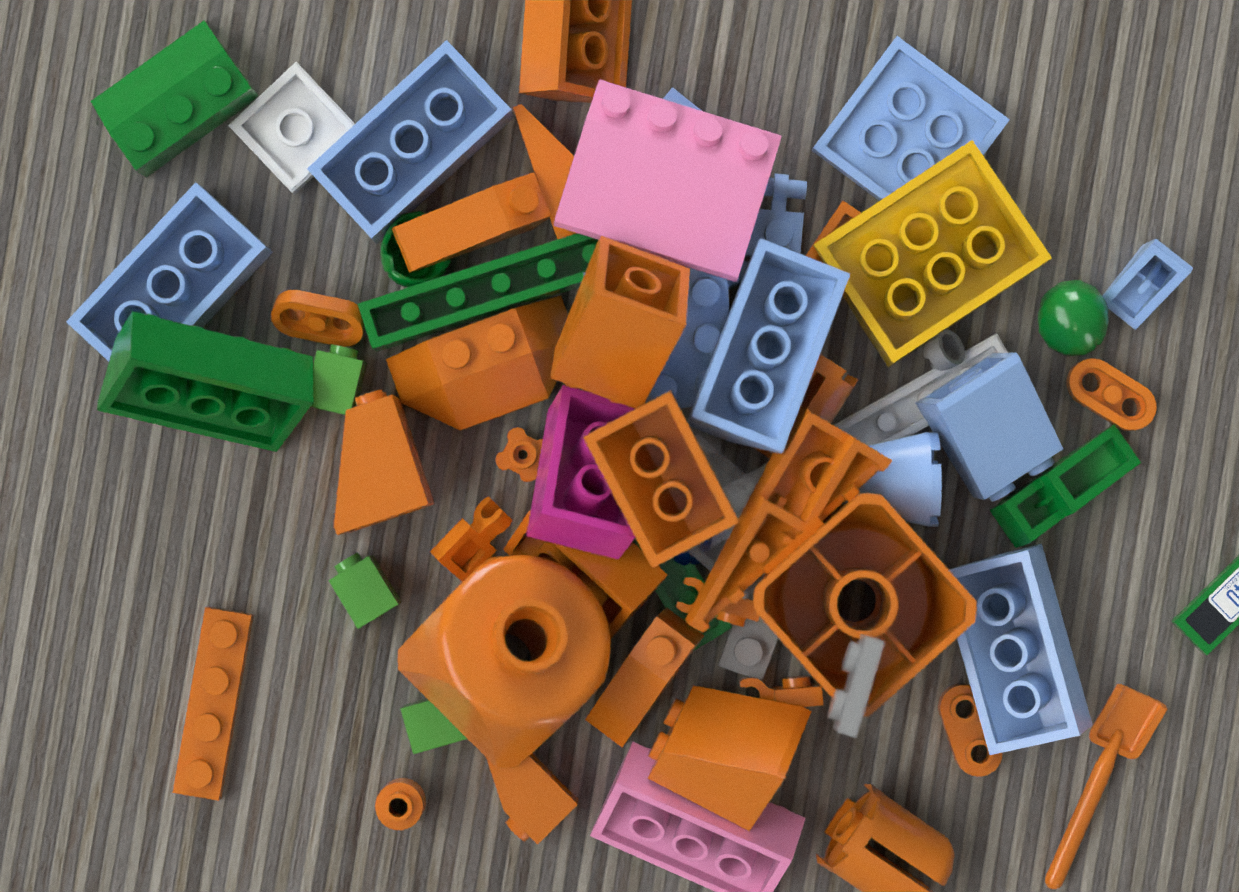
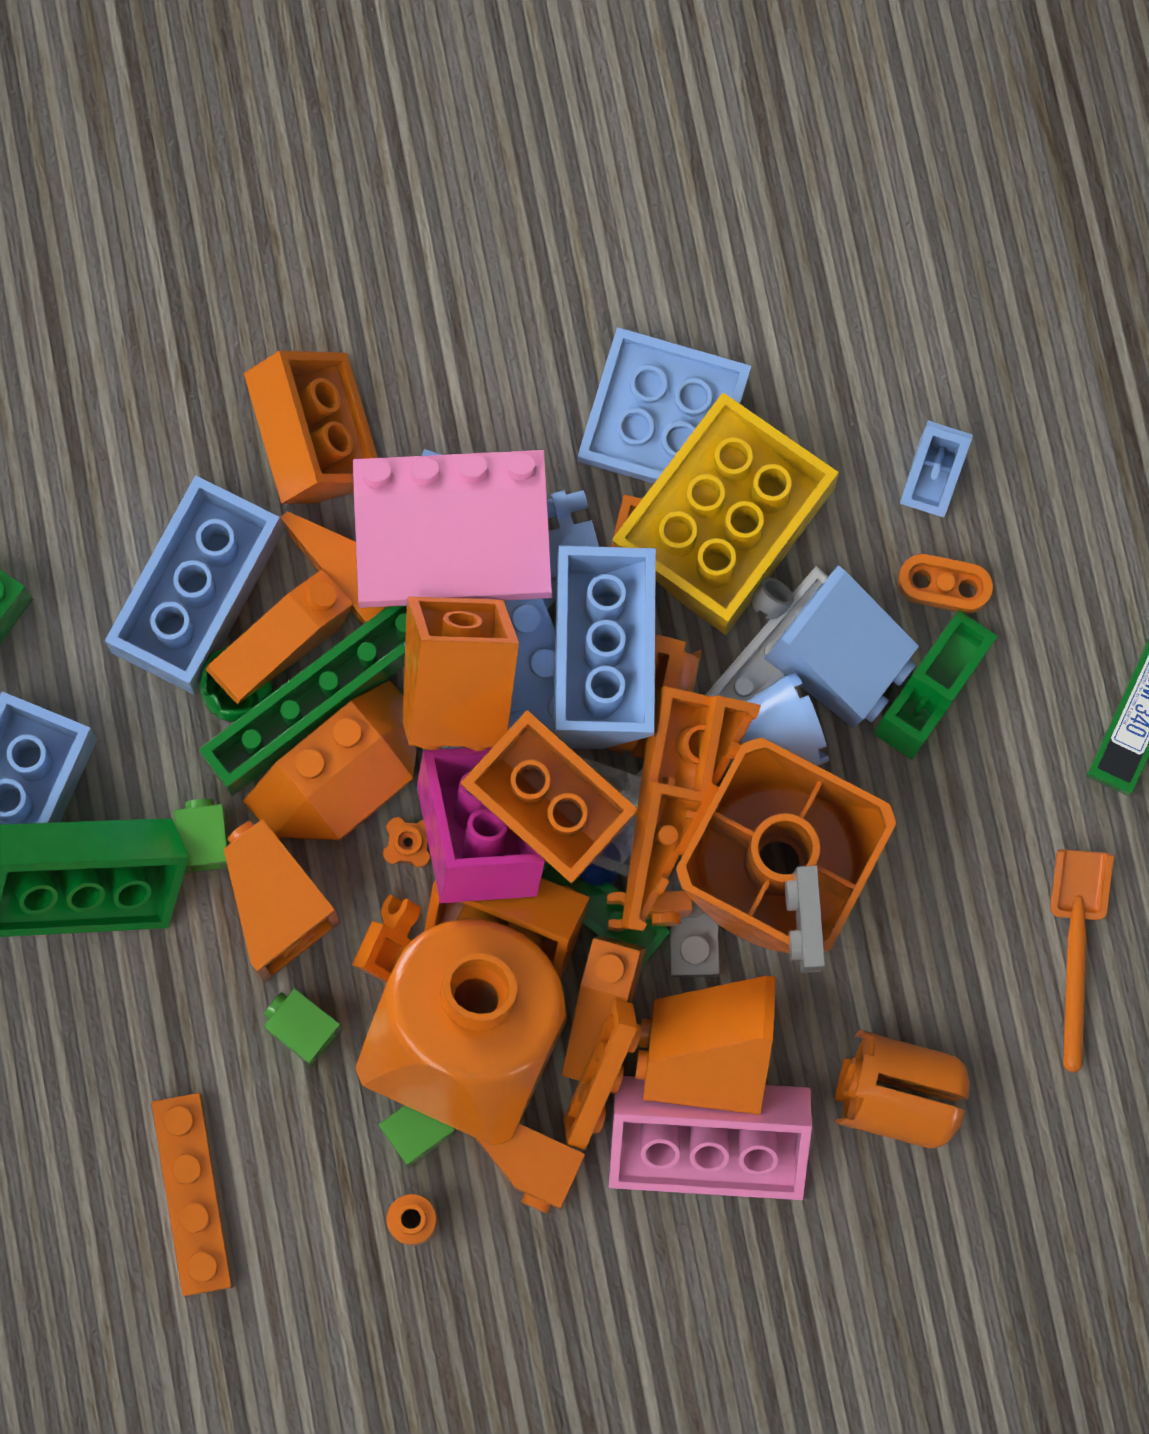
camera: 25 degrees left, 10 degrees down
(291, 126) = (73, 614): white tile -> none
(317, 318) = (164, 783): orange plate -> none
(619, 739) = (602, 1074): none -> orange plate
(794, 691) = (750, 967): orange plate -> none
(965, 732) = (934, 949): orange plate -> none
(1020, 653) = (954, 854): light blue slope -> none
(1073, 318) = (881, 527): green hair -> none

